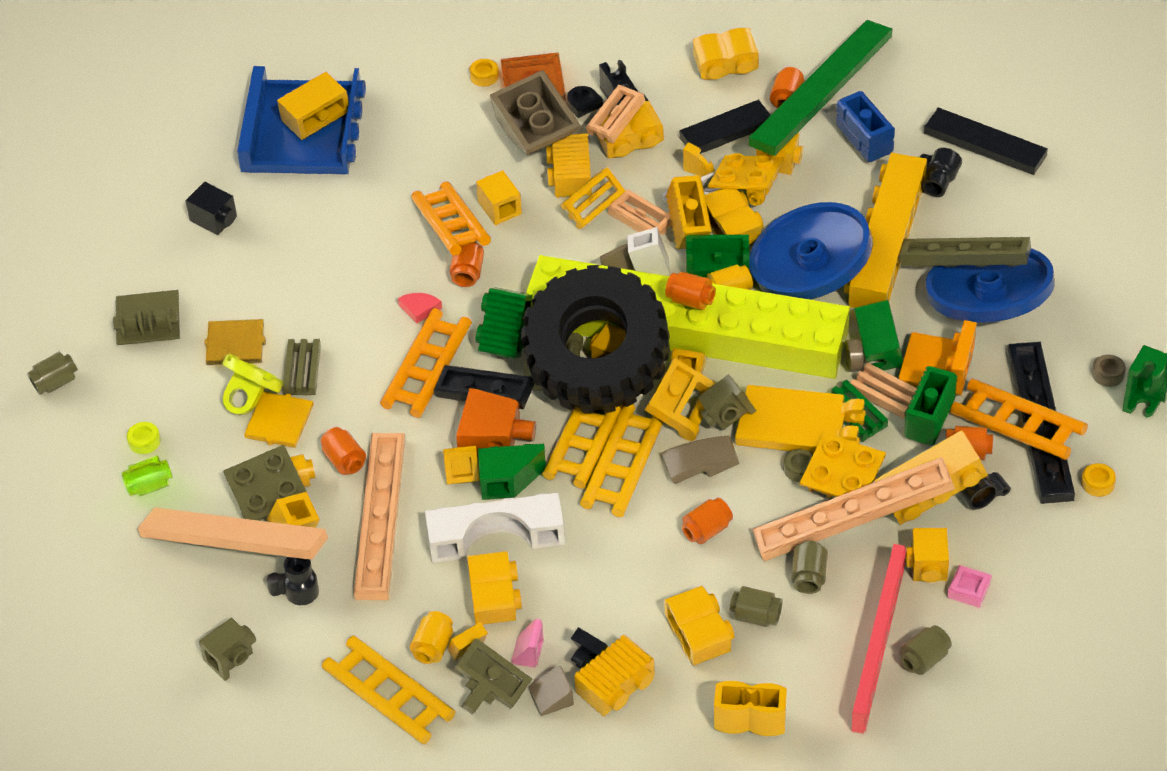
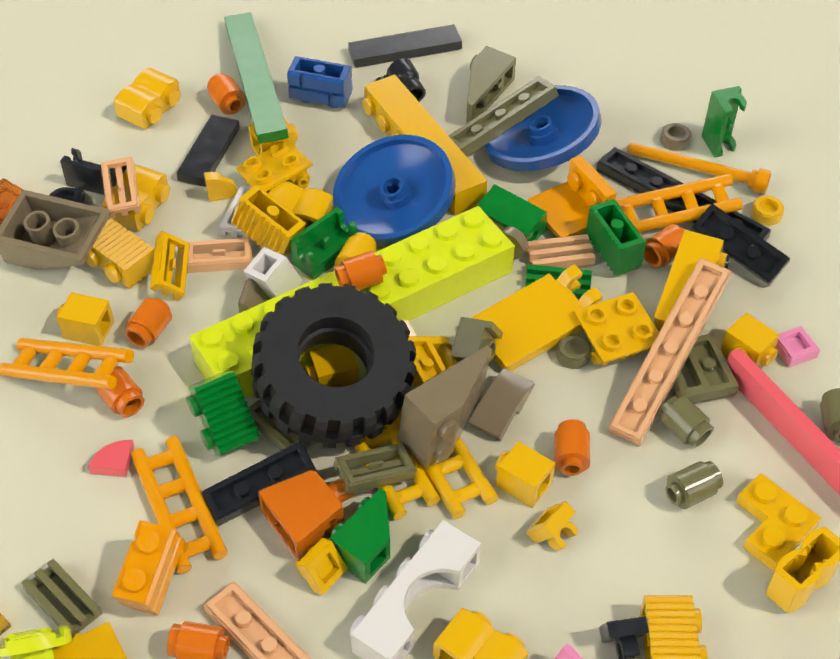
camera: 50 degrees left, 0 degrees up
(359, 383) = (148, 567): none -> light orange brick
(535, 228) = (148, 322): none -> orange brick
(556, 434) = (378, 472): none -> olive tile
(631, 554) = (551, 523): none -> yellow tile
(644, 424) = (441, 407): none -> dark tan slope
(653, 512) = (524, 473): none -> yellow brick
(698, 625) = (674, 537): yellow brick -> none
(795, 671) = (782, 517): none -> yellow plate
(874, 549) = (709, 372): none -> olive plate
(1006, 214) = (489, 78): none -> slope
(1027, 484) = (742, 244): none -> black tile
(1122, 451) = (756, 179): none -> light orange piece

